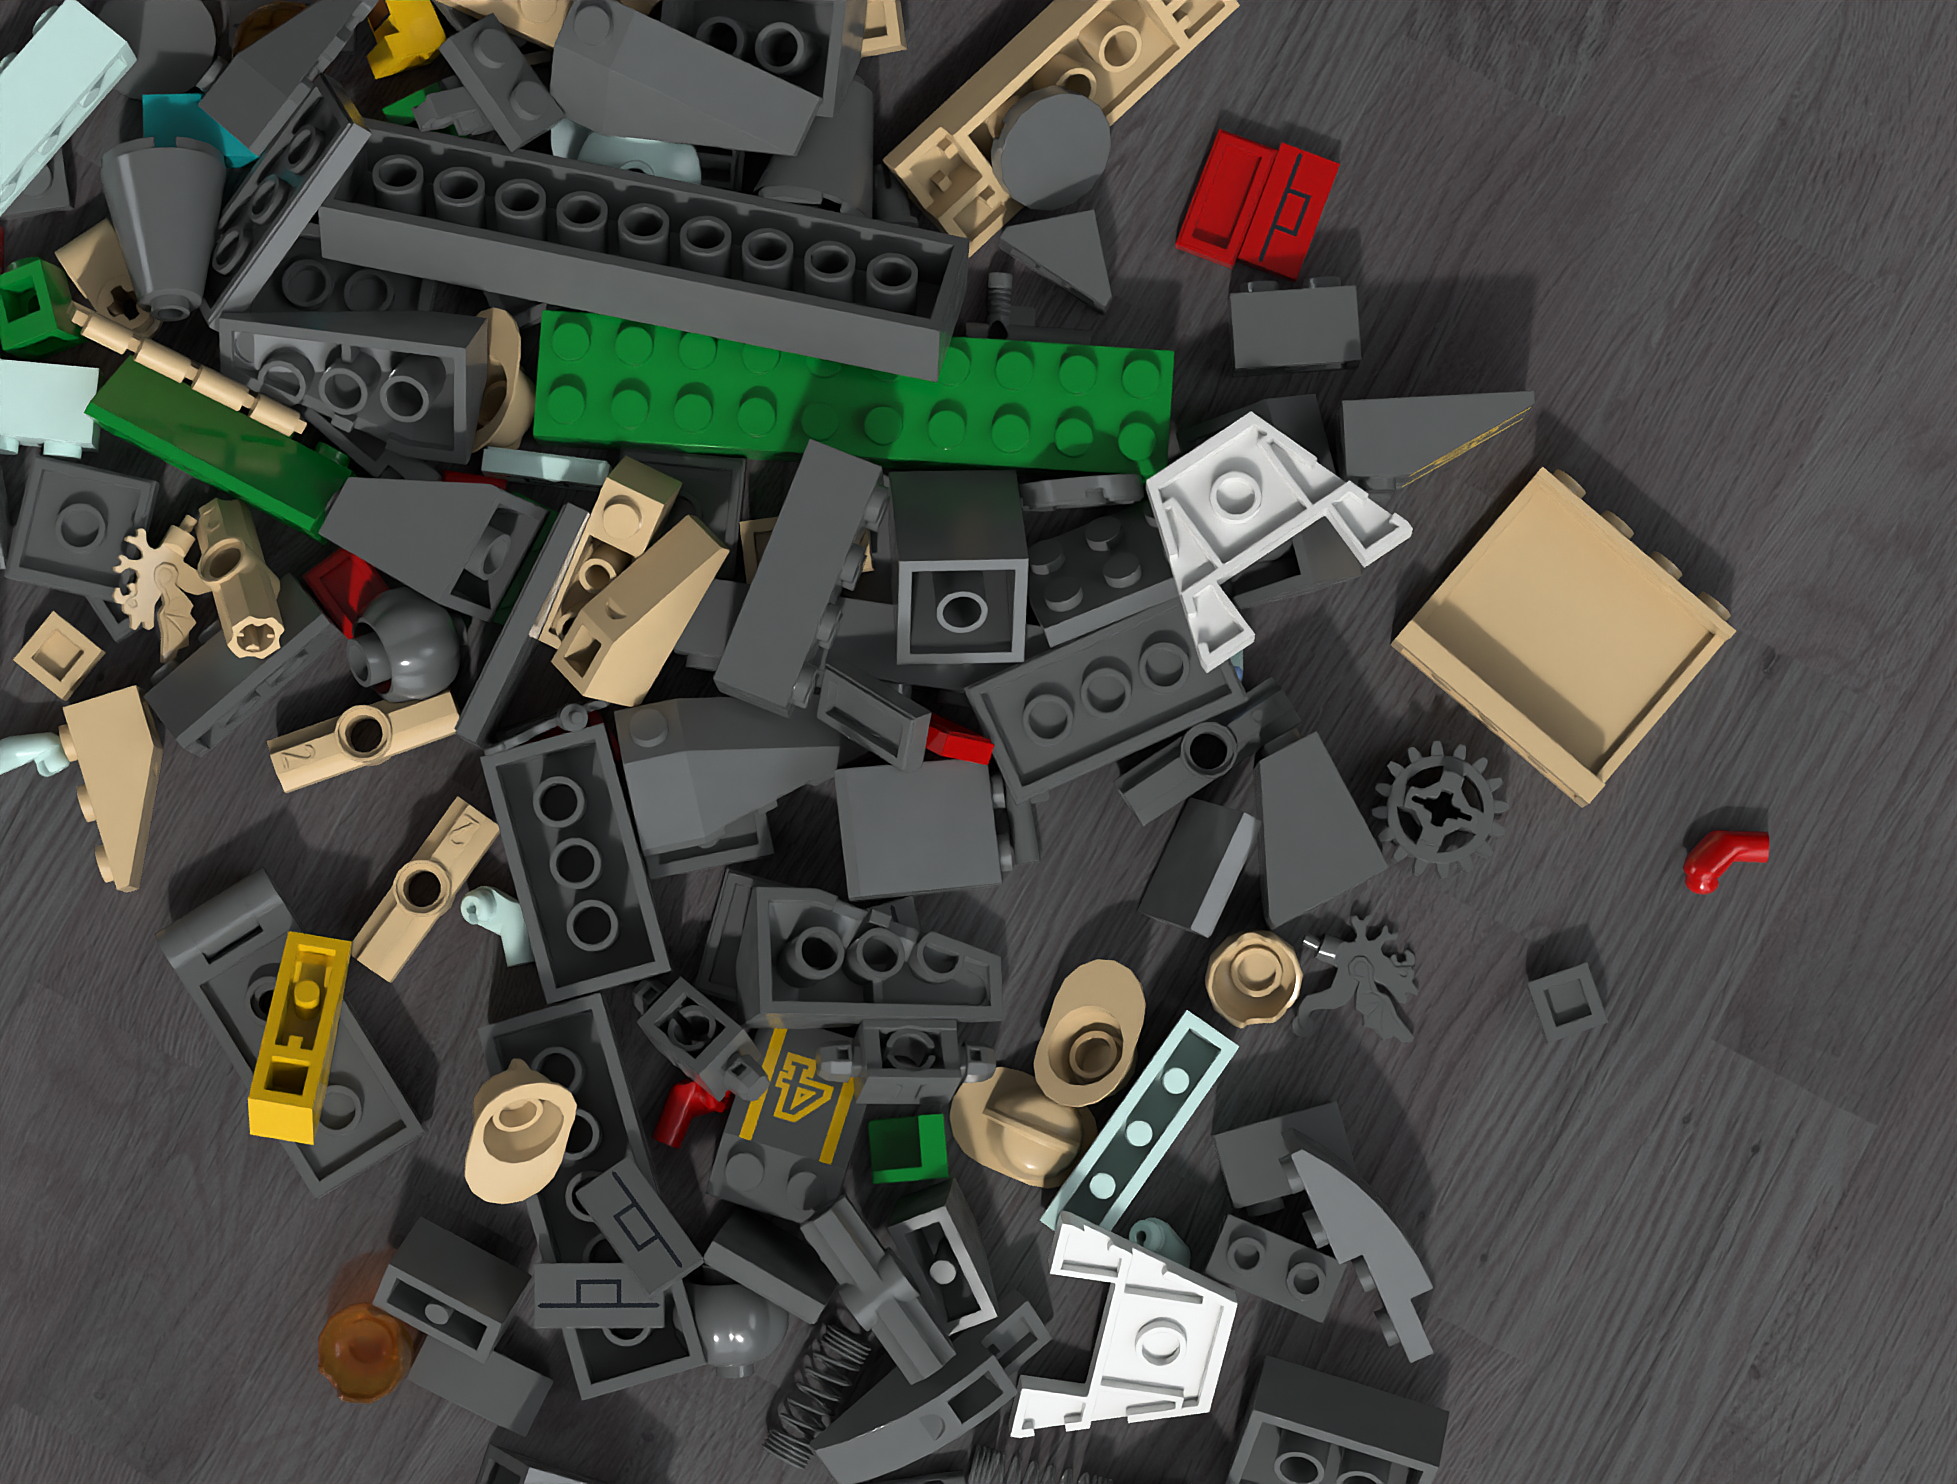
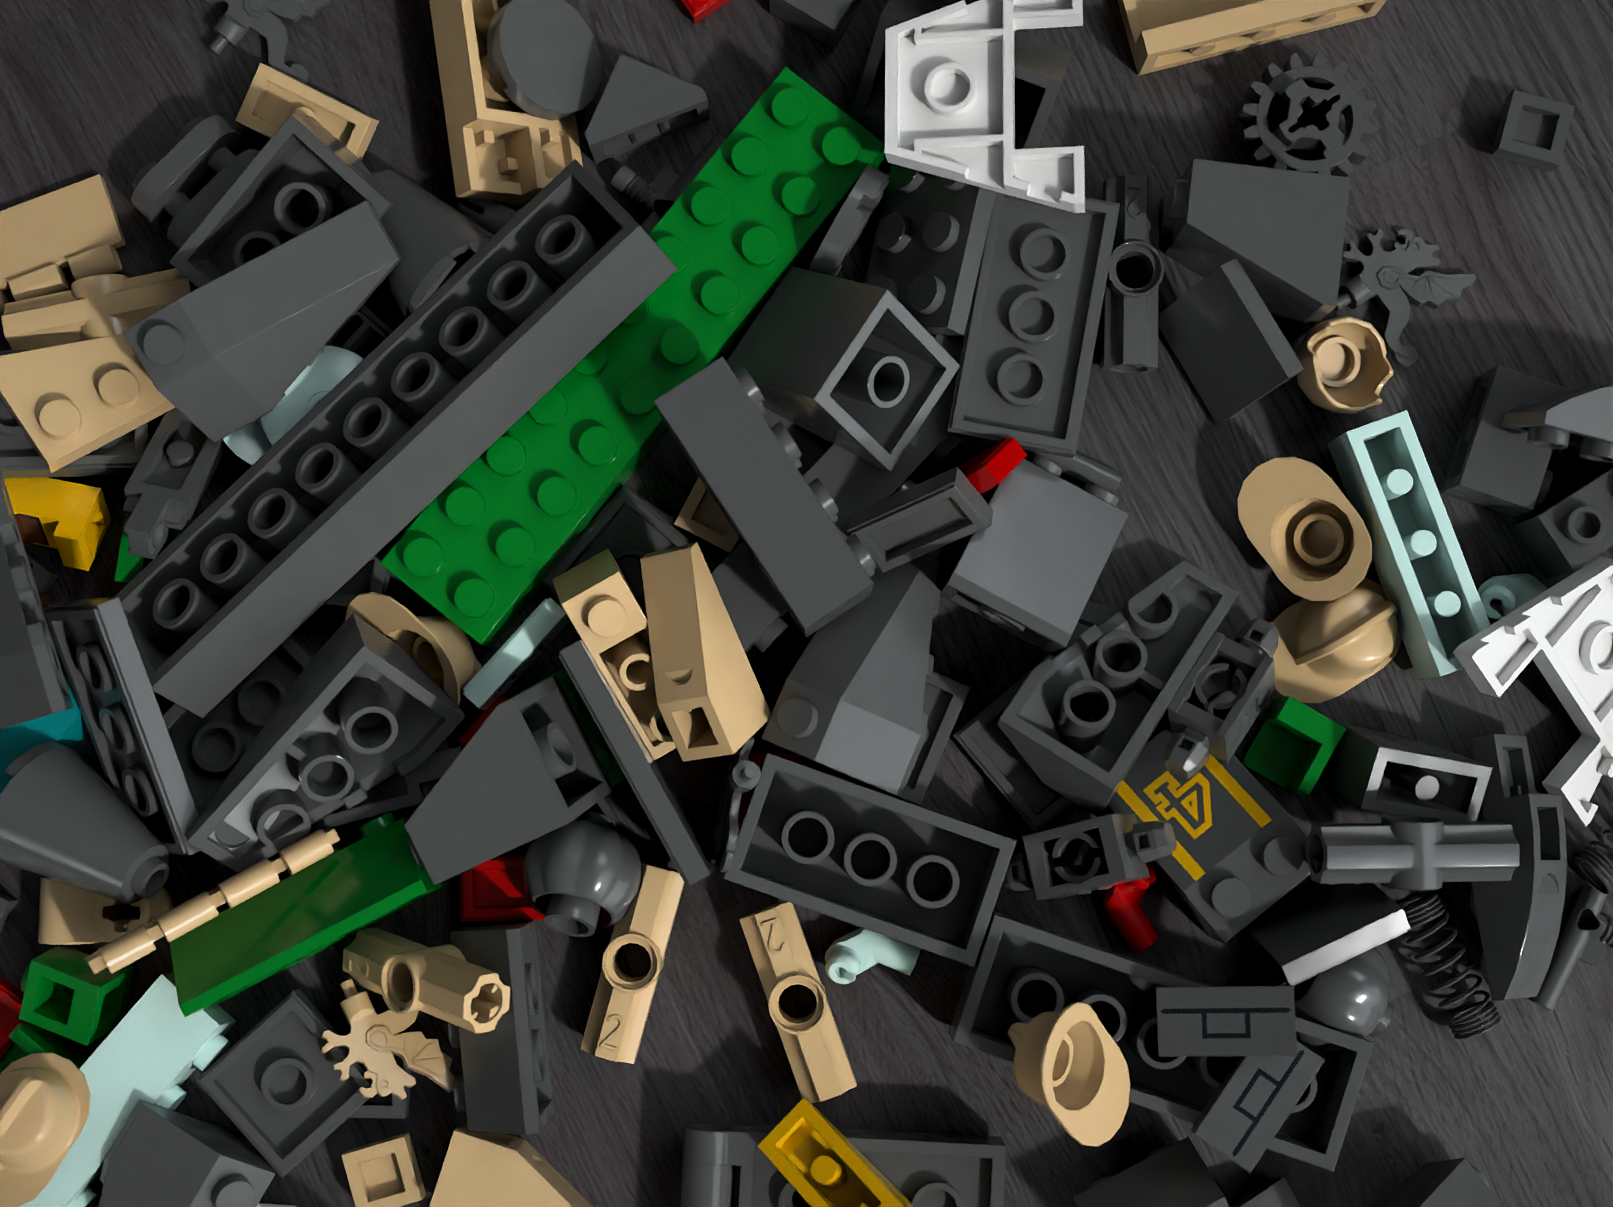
camera: 55 degrees left, 0 degrees up
(502, 82) = (161, 462): dark grey plate -> none

